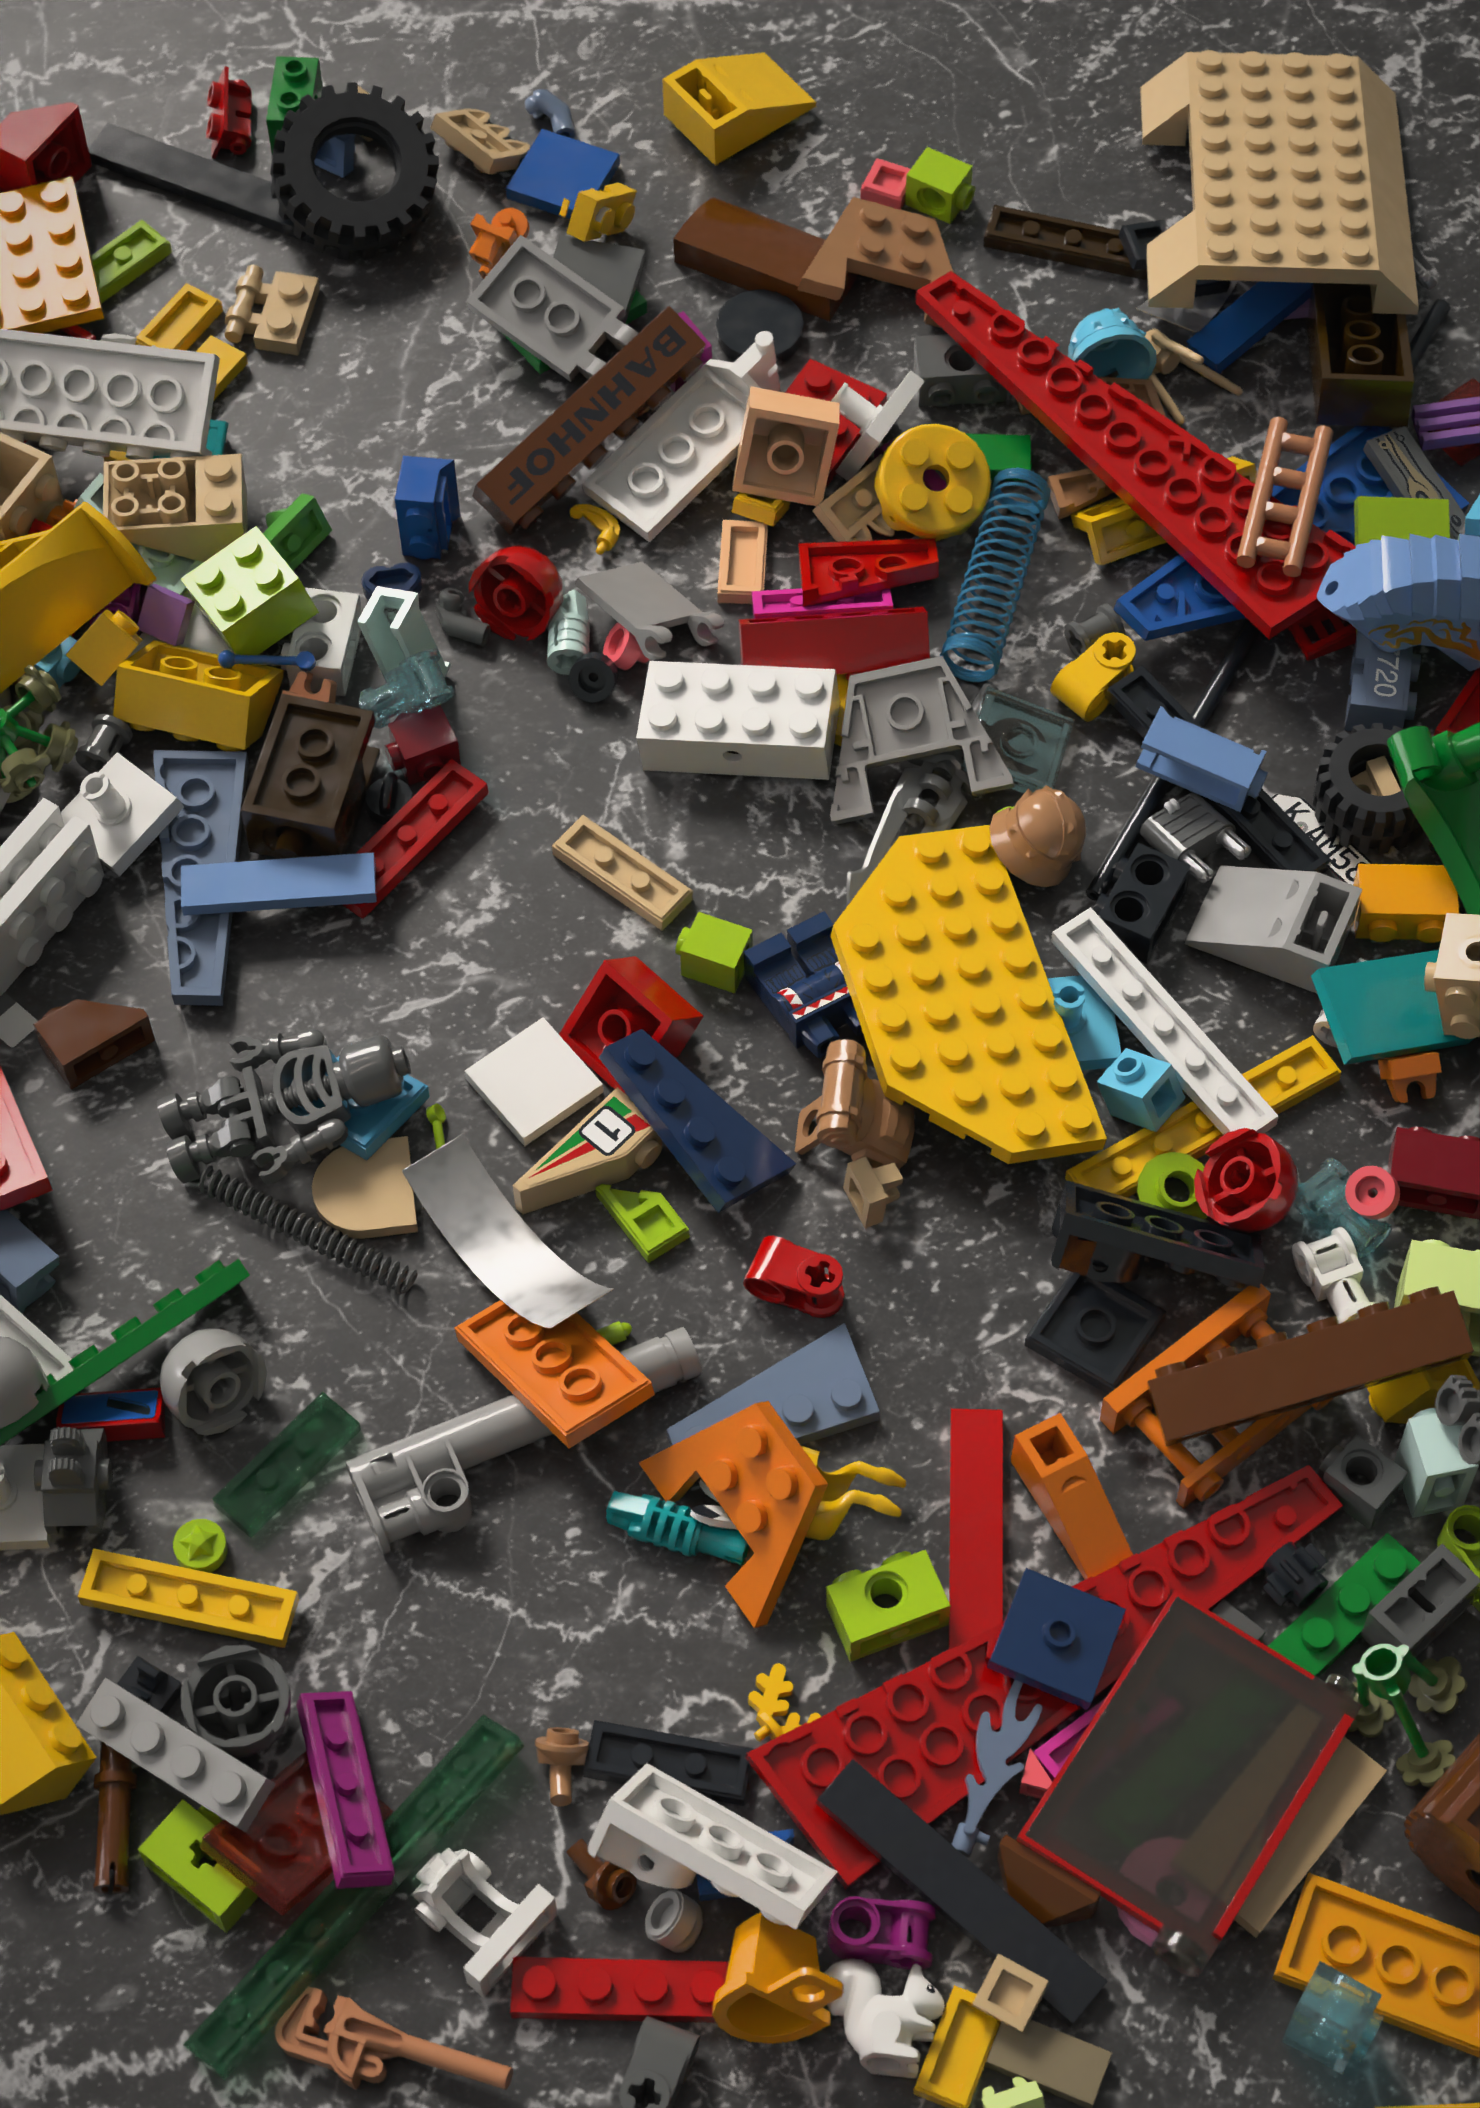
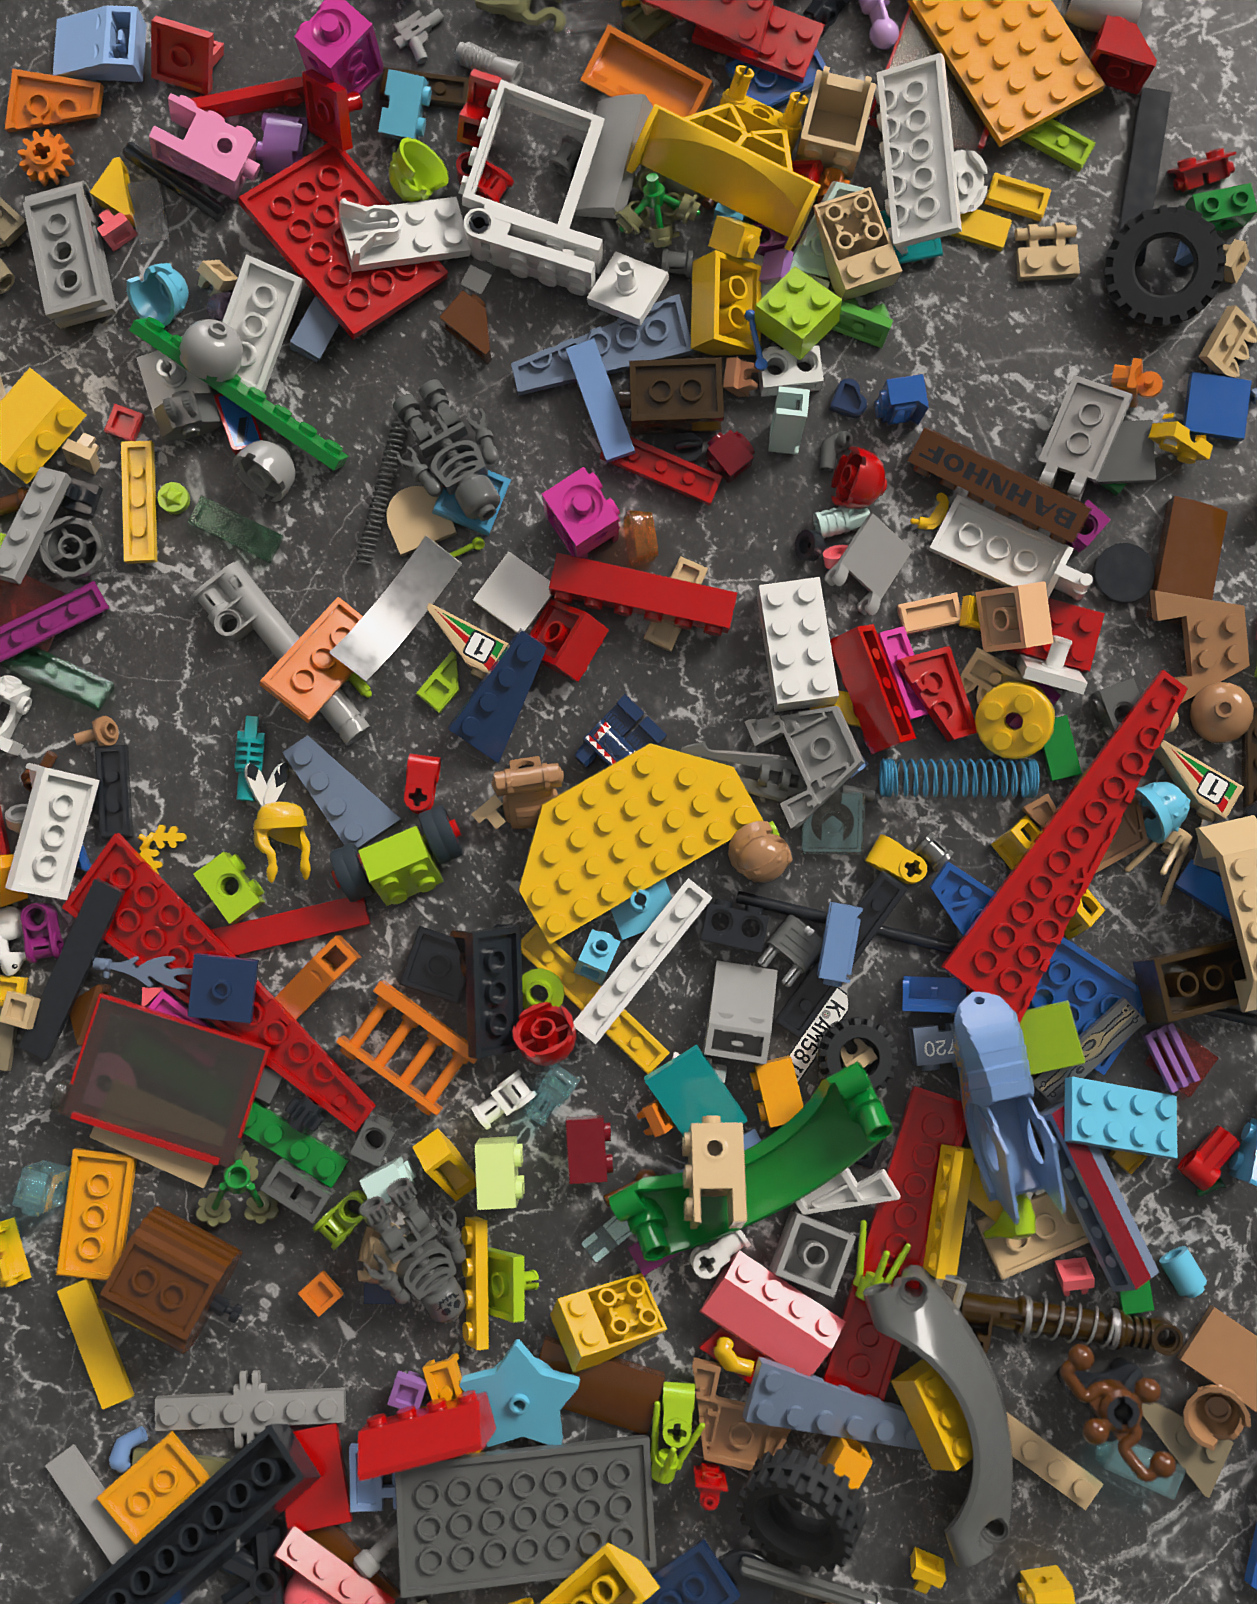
camera: 70 degrees right, 25 degrees up
(44, 1596) = (124, 423): none -> tile
(75, 1665) = (82, 453): none -> tan tile
(410, 689) = (751, 434): clear light blue connector -> none
(455, 932) = (581, 513): none -> dark pink torso
(507, 885) = (640, 537): none -> clear orange piece
(595, 897) = (642, 593): none -> red brick
(714, 951) = (628, 675): lime brick -> none
(763, 1487) = (268, 796): orange wing -> none
(922, 1325) = (399, 863): none -> brick
(993, 257) = (1221, 712): none -> medium nougat cylinder
(1095, 287) = (1205, 787): none -> tan slope
(1300, 516) = (1067, 968): nougat bar -> none
(1306, 674) = (932, 994): none -> blue hinge
(1309, 1367) = (414, 1098): reddish brown brick -> none
(1372, 1192) = (553, 1111): coral tile -> none

